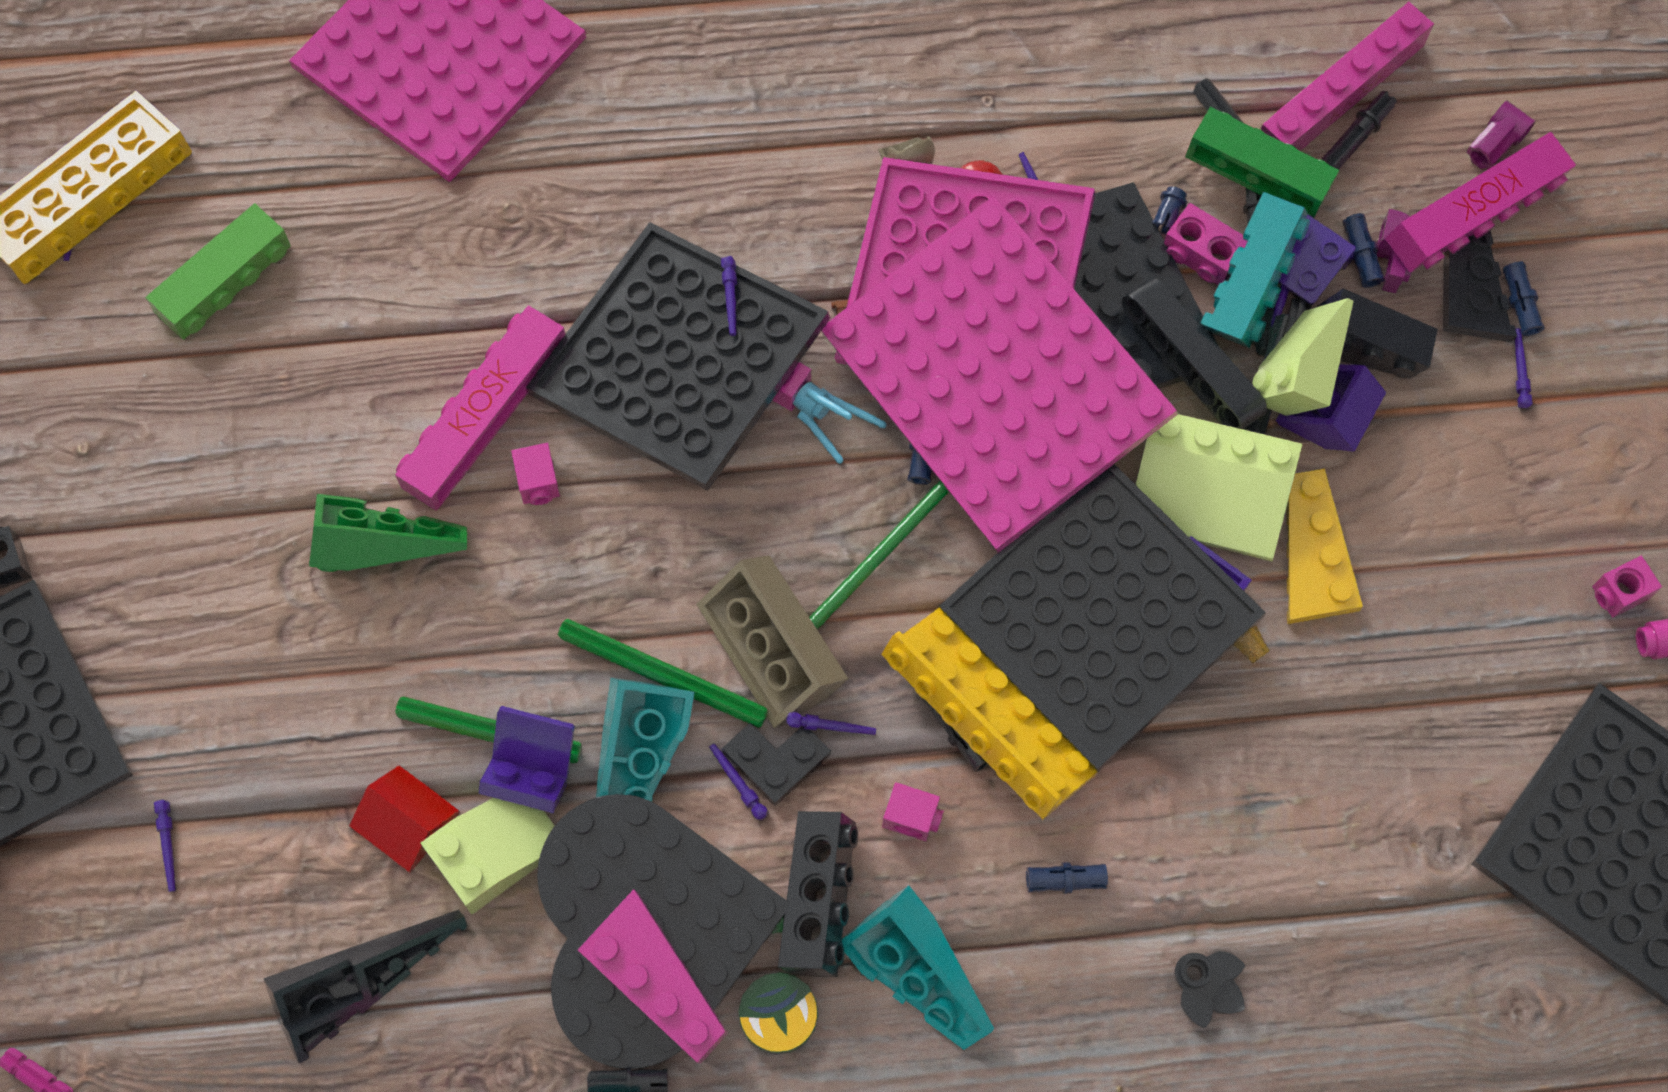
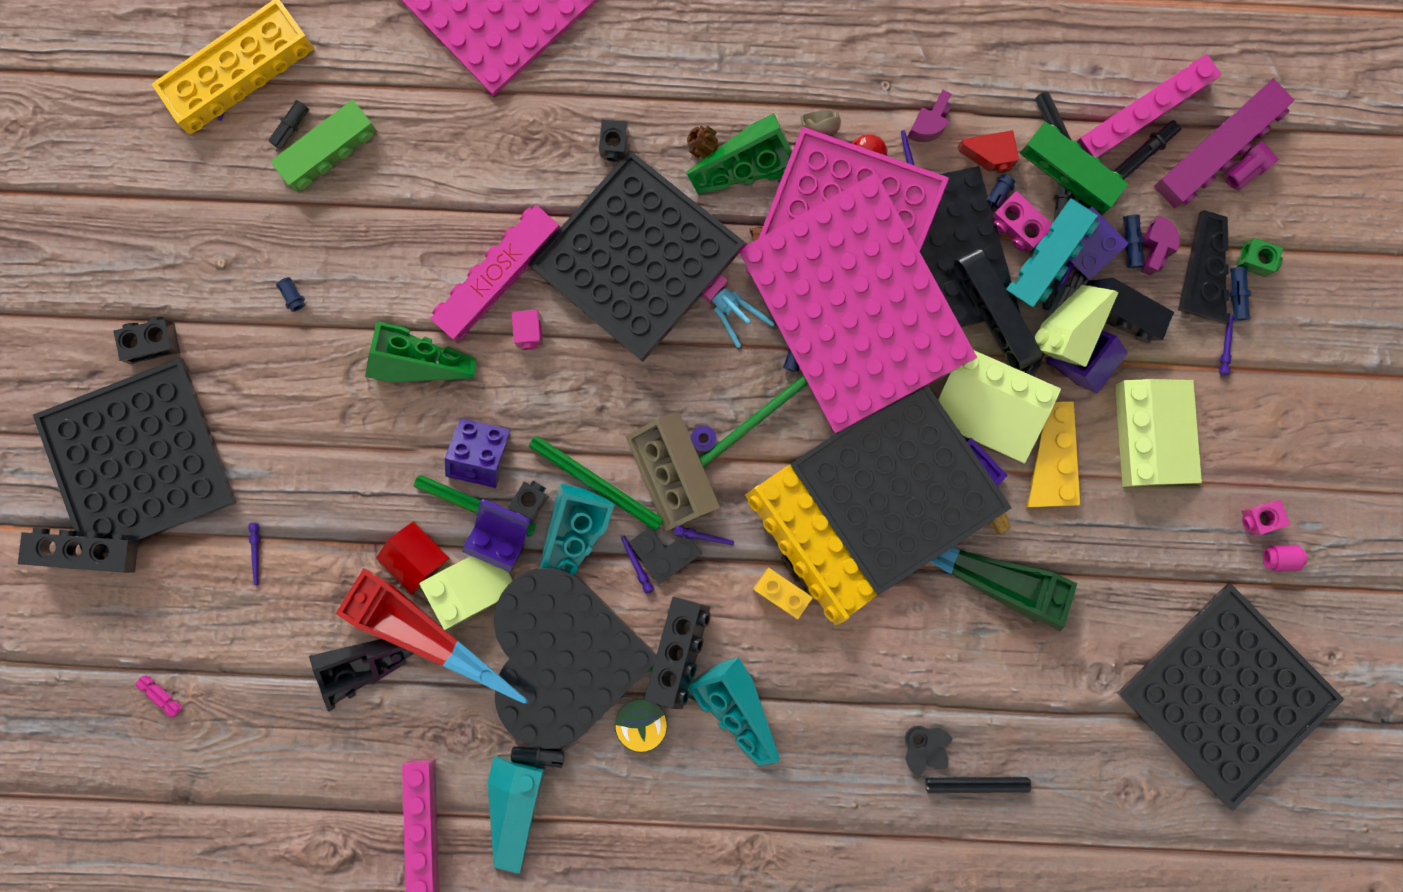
camera: 10 degrees right, 15 degrees up
(165, 251) = (288, 124): none -> black axle
(193, 480) = (290, 294): none -> dark blue pin
(383, 901) = (390, 615): none -> red plate
(482, 656) = (476, 452): none -> dark purple bracket
(572, 691) = (518, 506): none -> black brick
(622, 199) = (609, 130): none -> black brick
(650, 973) = (561, 699): dark pink wedge -> none
(729, 280) = (678, 206): dark purple piece -> none
(749, 198) = (702, 141): none -> reddish brown gear
(814, 600) = (703, 447): none -> dark purple plate
(817, 209) = (751, 155): none -> green wedge
(912, 812) = (749, 605): dark pink brick -> none
(959, 785) = (782, 593): none -> yellow brick
(1058, 137) = (932, 123): none -> magenta brick
(1066, 878) = (844, 664): dark blue pin -> none
(1146, 160) = (992, 151): none -> red slope
(1295, 1027) = (978, 785): none -> black axle
(1304, 732) = (1024, 589): none -> dark green plate
(1450, 494) = (1157, 432): none -> yellowish green slope
(1457, 112) = (1227, 140): none -> magenta brick
(1480, 202) = (1226, 220): dark pink brick -> none
(1544, 235) = (1249, 257): none -> green brick

